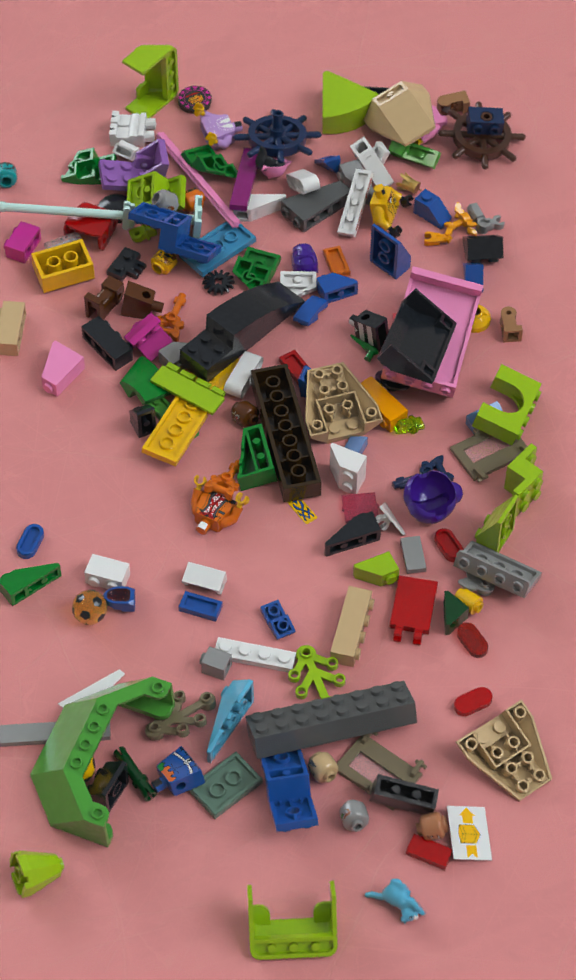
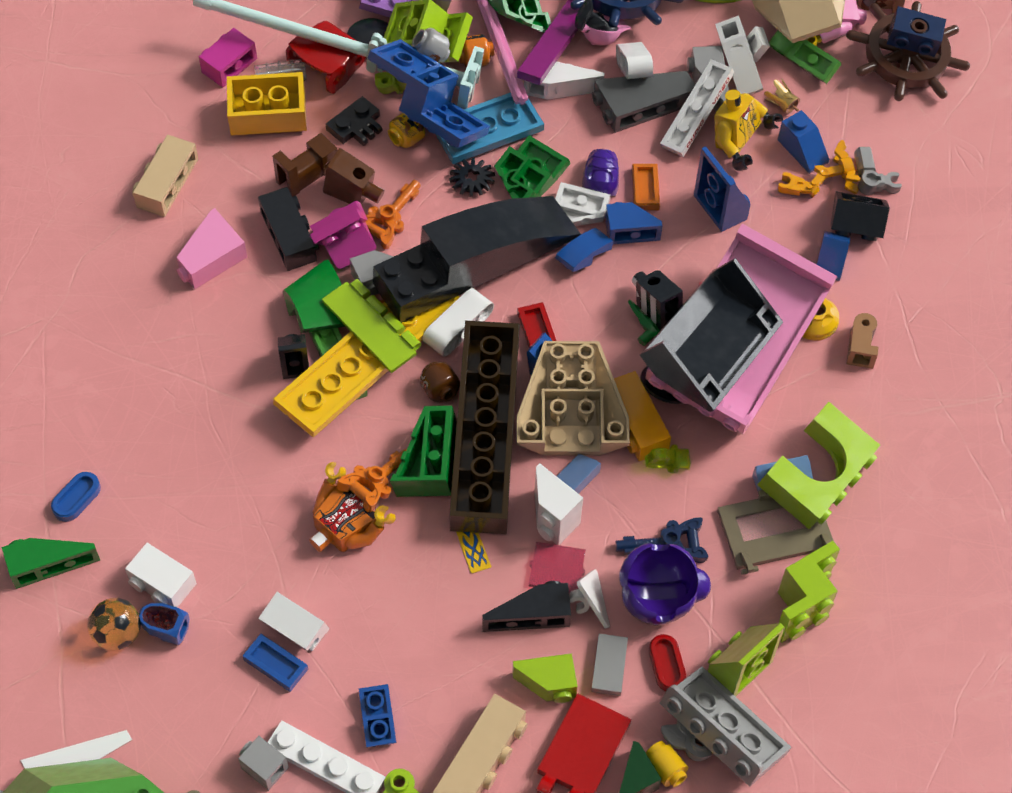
camera: 15 degrees right, 5 degrees up
(329, 162) = (682, 40): blue slope -> none

